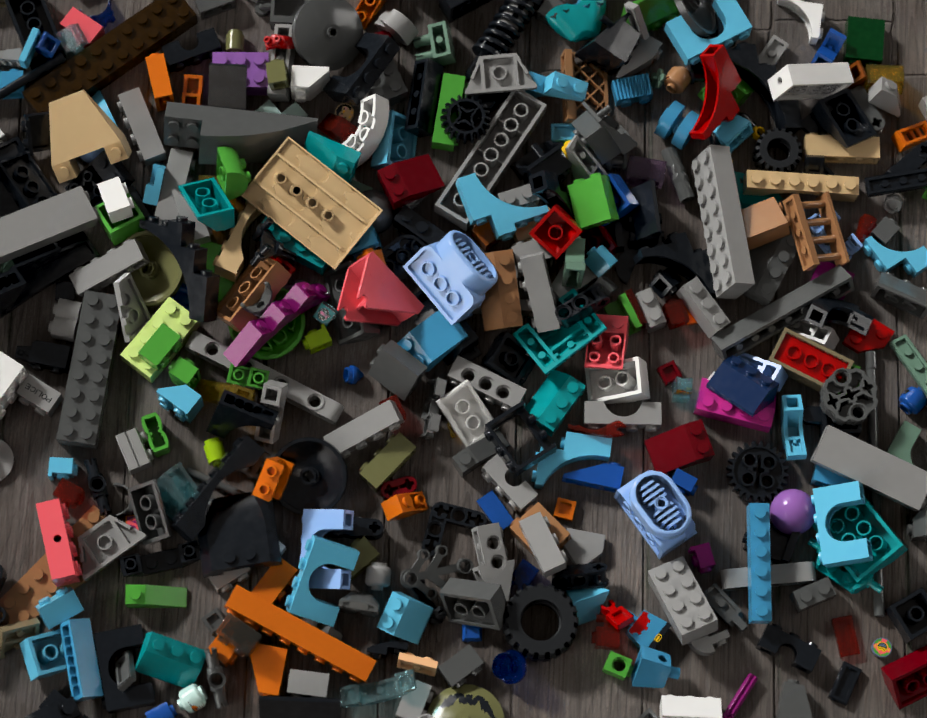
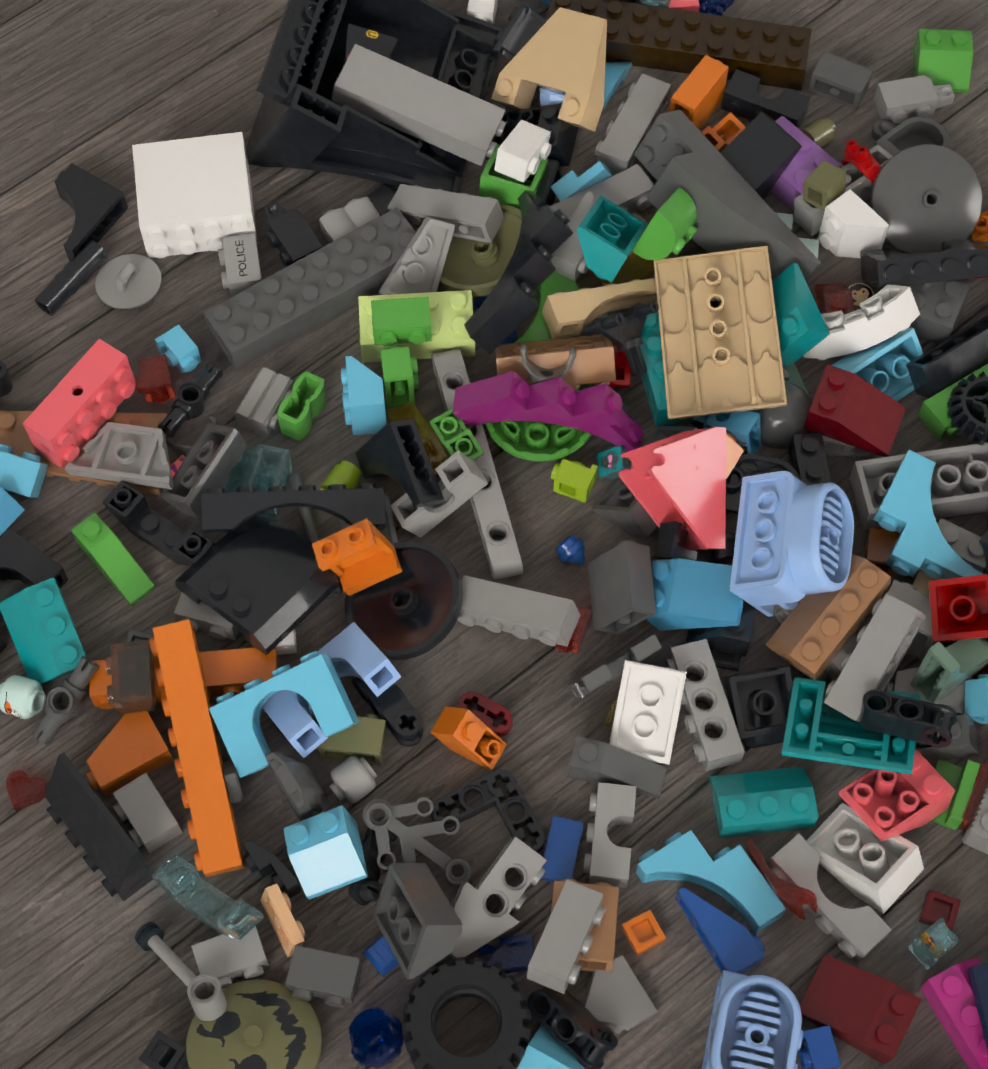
camera: 55 degrees right, 10 degrees down
(387, 461) = (504, 672): olive brick -> none
(396, 327) = (672, 542): none -> black panel
(530, 422) = (681, 754): black window -> none

